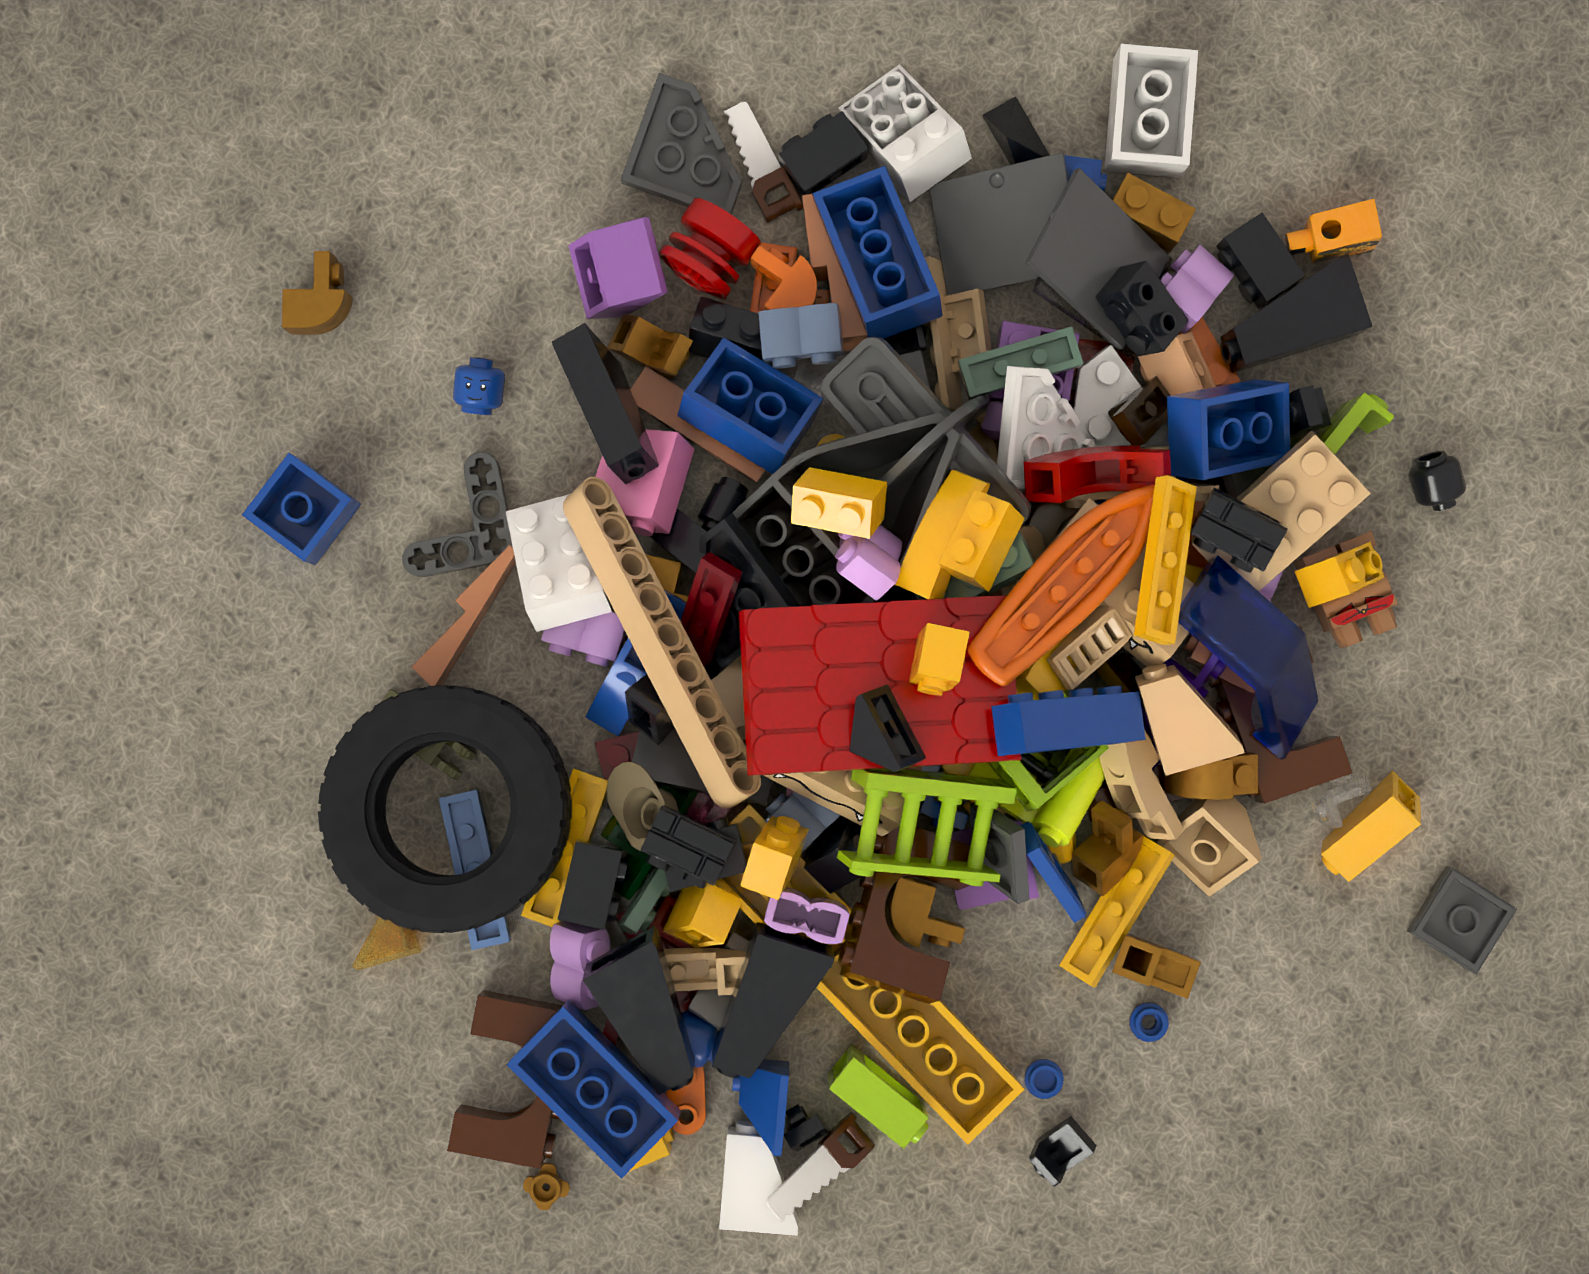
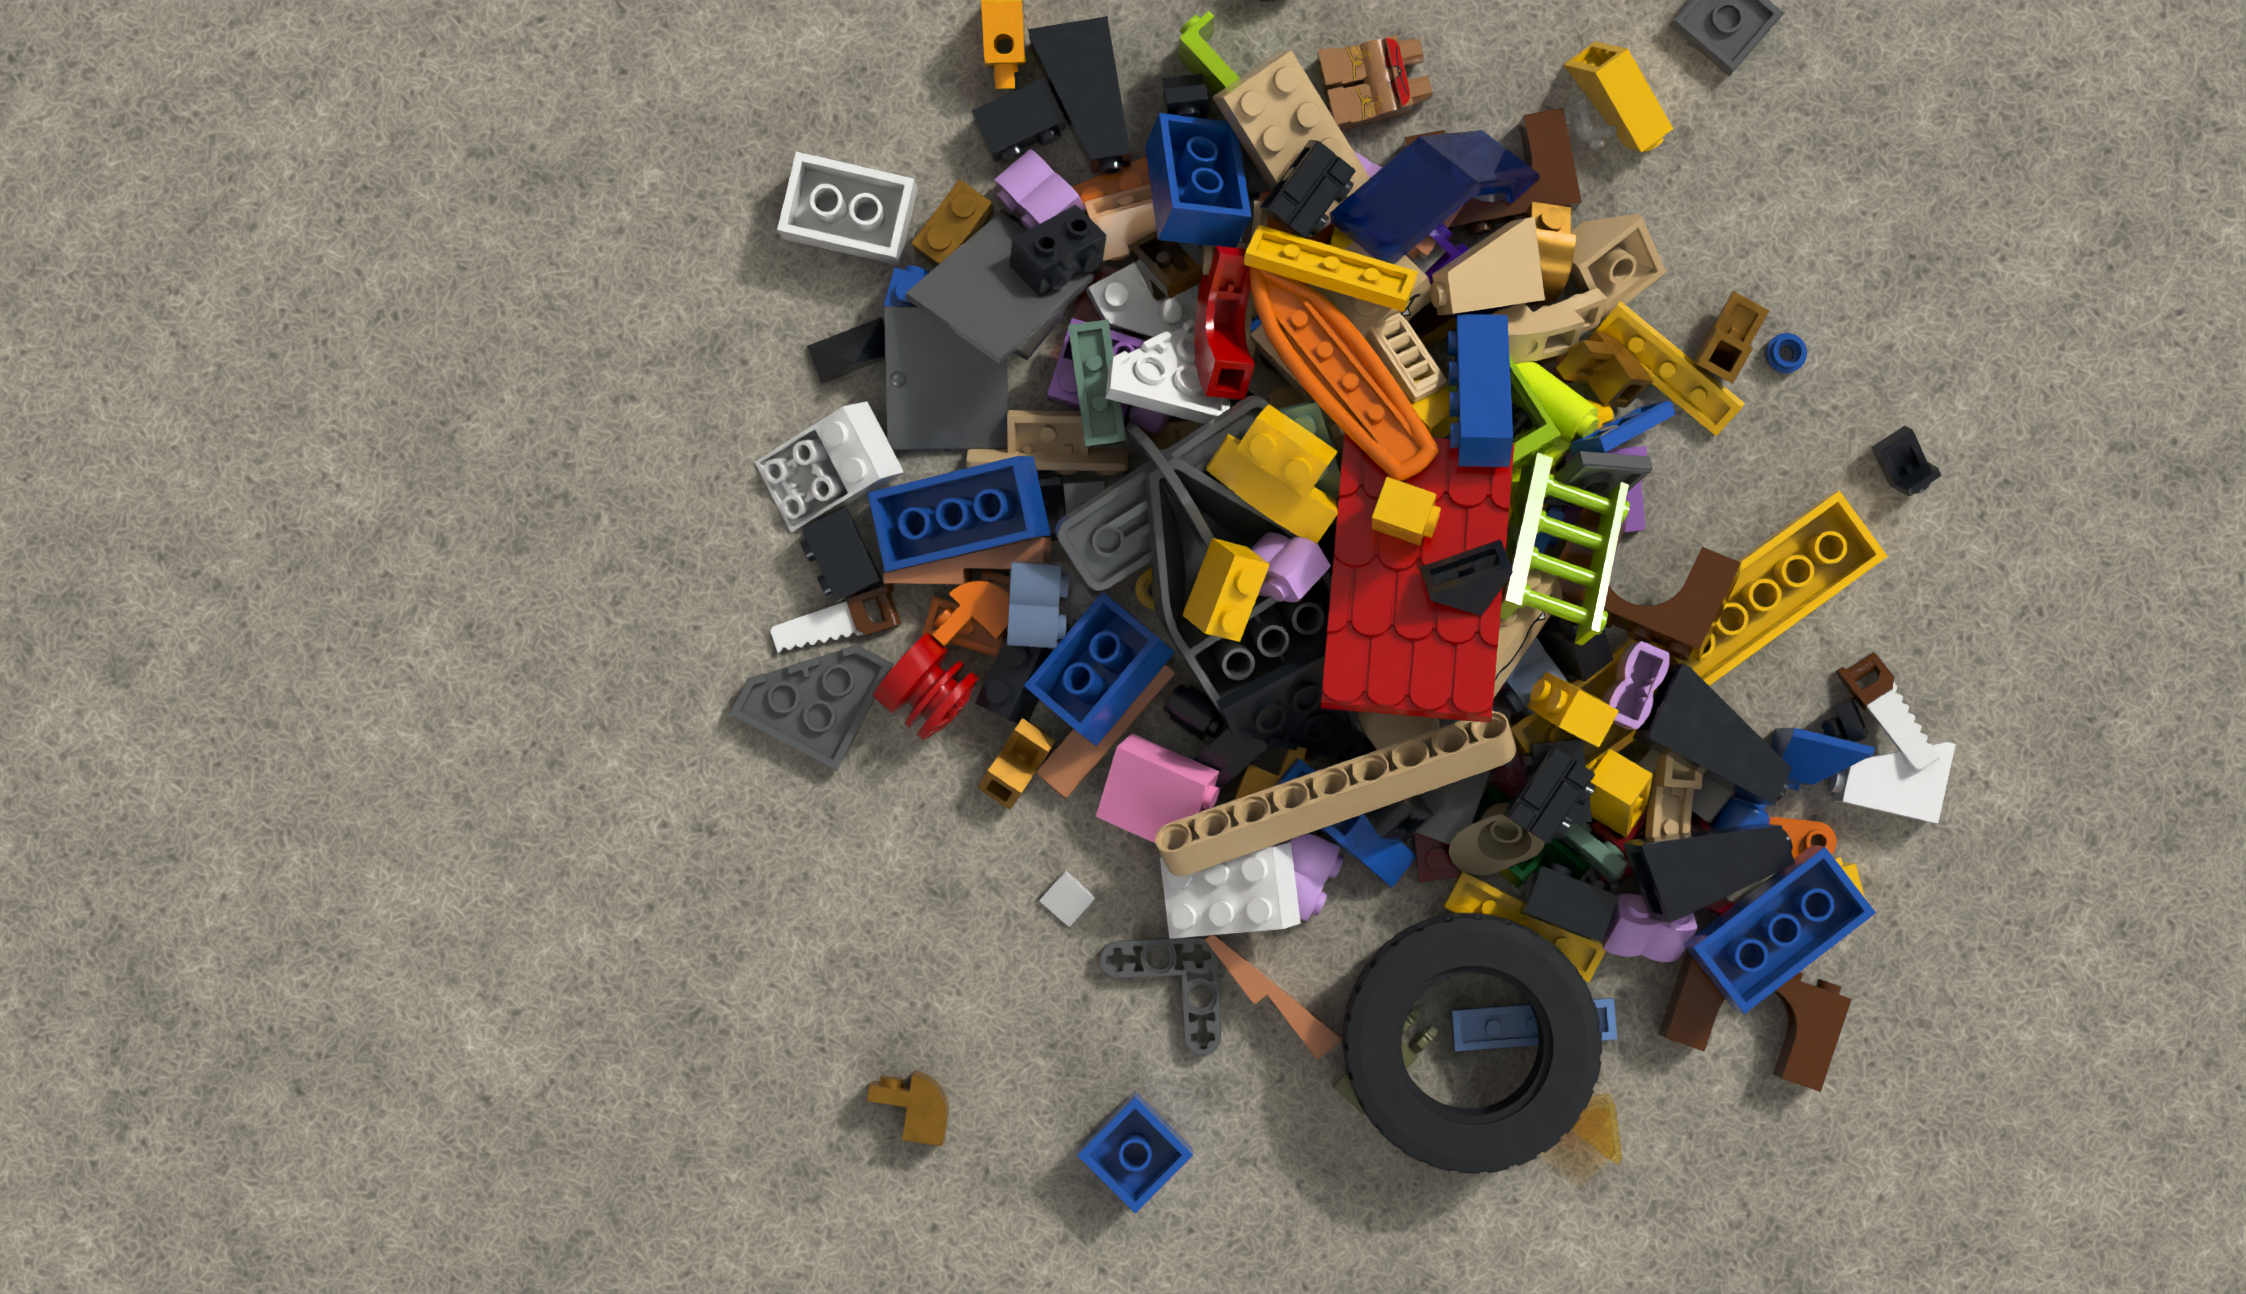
camera: 75 degrees left, 0 degrees up
(478, 386) = (1032, 949): blue head -> none
(532, 414) = (1067, 898): none -> white slope
(542, 1197) = (1881, 998): pearl gold plate -> none
(606, 403) = (1076, 816): black slope -> none
(618, 269) = (933, 785): medium lavender slope -> none
(709, 604) = (1303, 738): dark red plate -> none
(878, 1097) = (1826, 640): lime window -> none
(910, 915) = (1647, 580): pearl gold brick -> none
(1043, 1078) = (1829, 469): blue plate -> none
(1340, 574) = (1361, 90): yellow slope -> none

